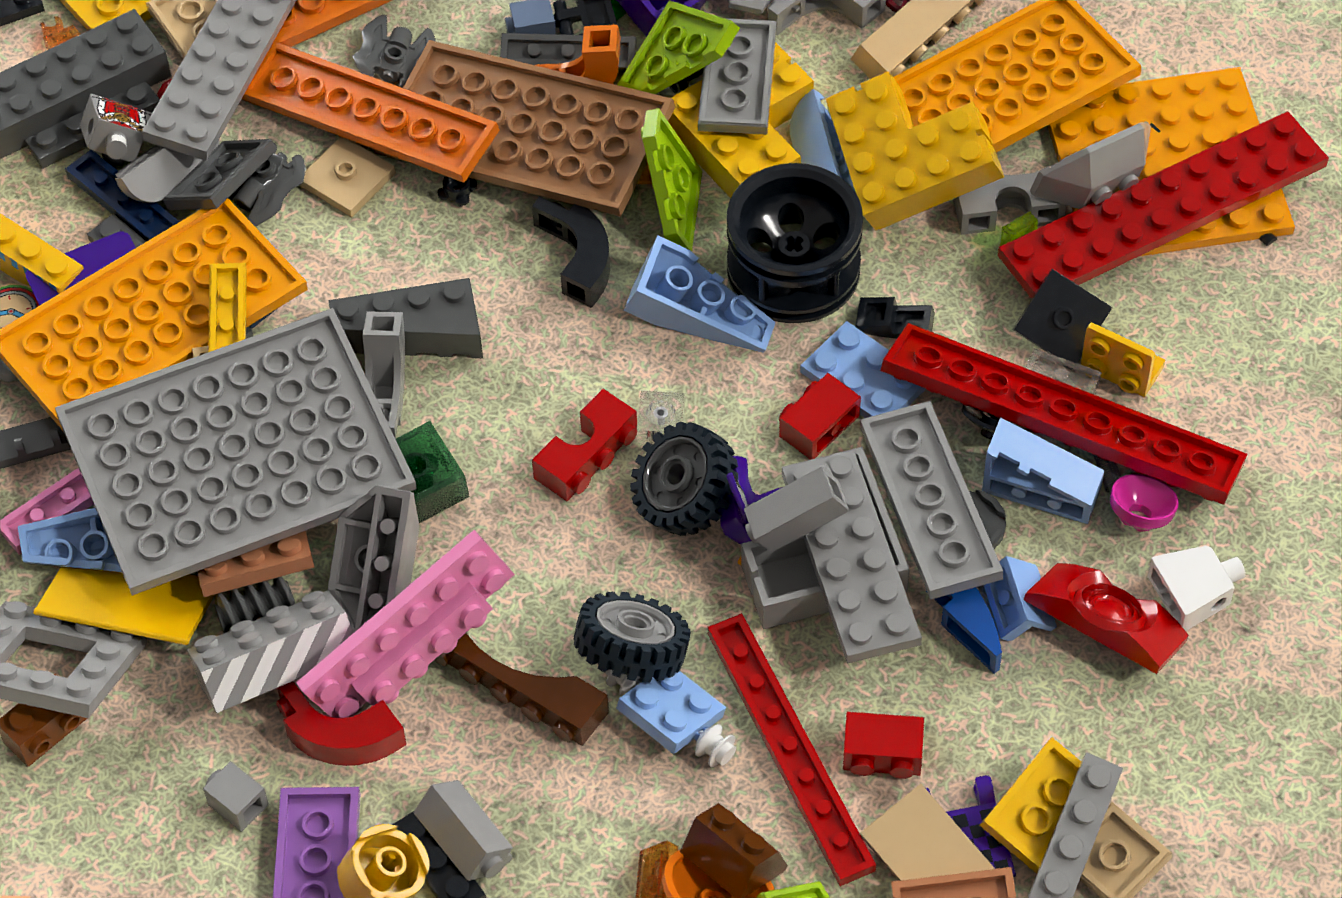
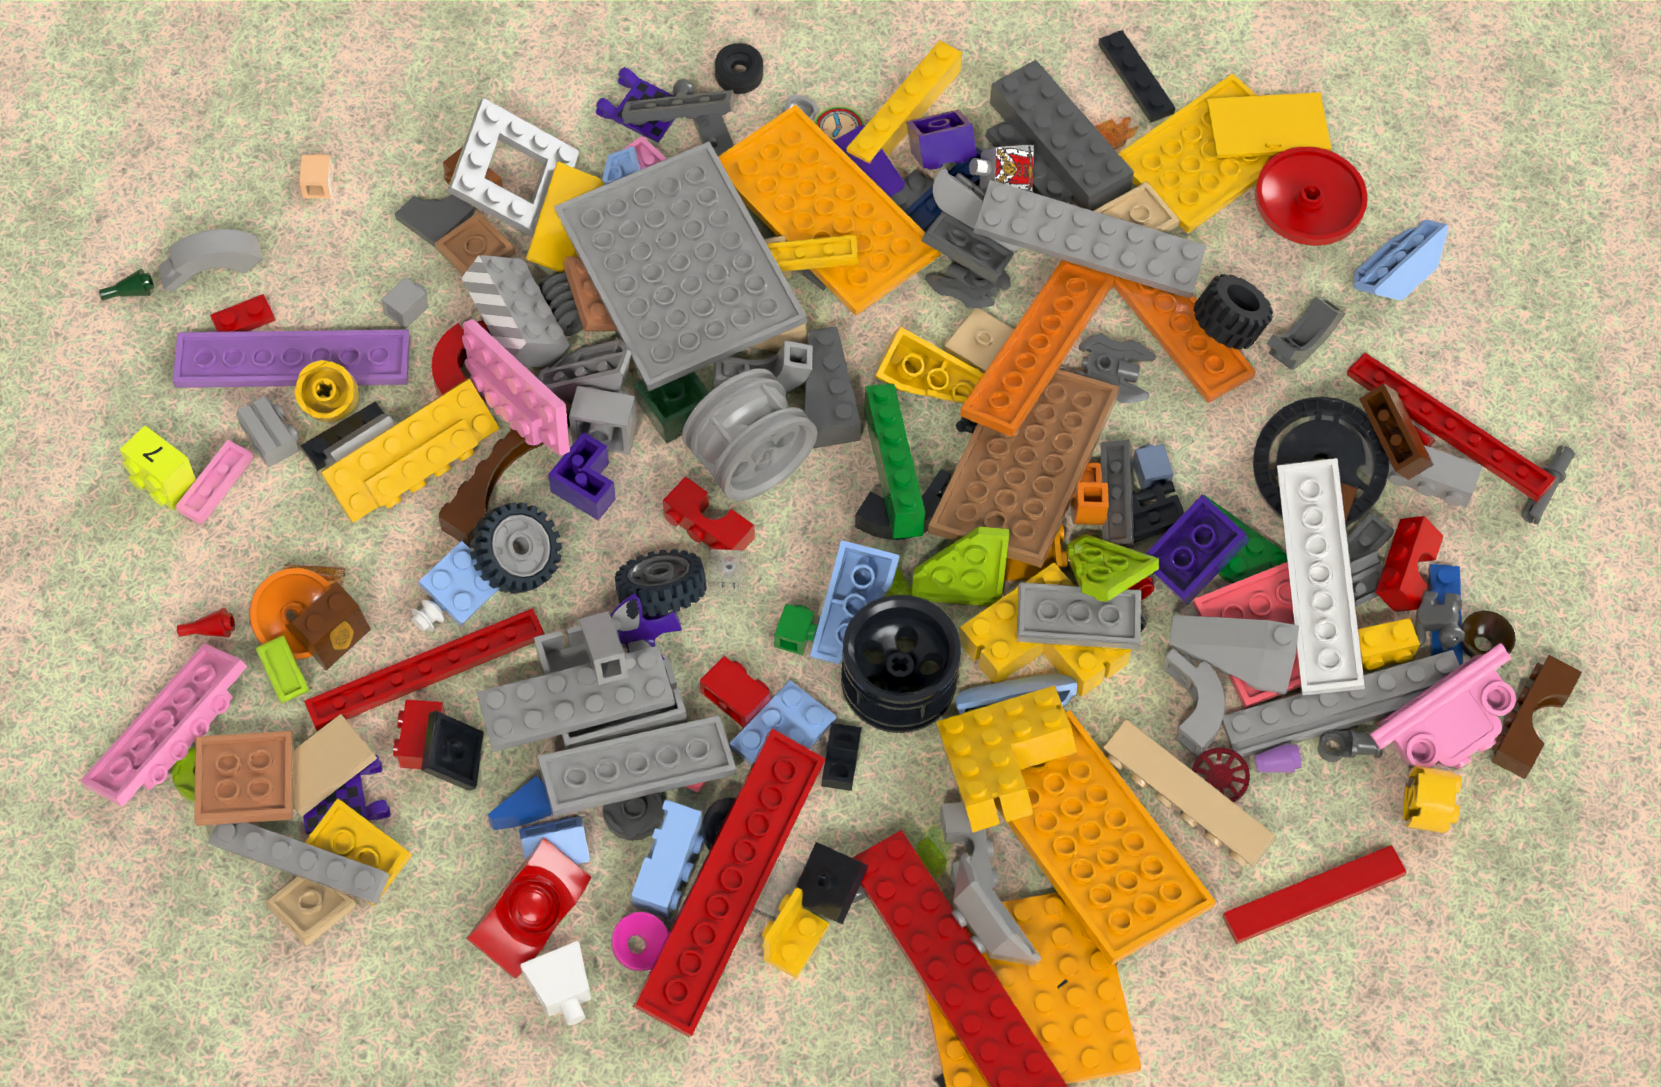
camera: 85 degrees right, 5 degrees up
(58, 192) = (941, 139): none -> dark purple brick
(93, 775) = (434, 218): none -> dark grey tile
(151, 718) = (472, 239): none -> medium nougat plate
(389, 223) = (925, 369): none -> yellow wedge
(441, 528) = (605, 417): none -> light grey brick
(479, 771) = (410, 452): none -> yellow plate
(494, 374) = (749, 434): none -> light grey wheel
(527, 242) = (894, 461): none -> green brick
(537, 571) = (579, 477): none -> dark purple brick
(735, 357) = (795, 629): none -> green brick
(910, 700) = (452, 750): none -> black plate

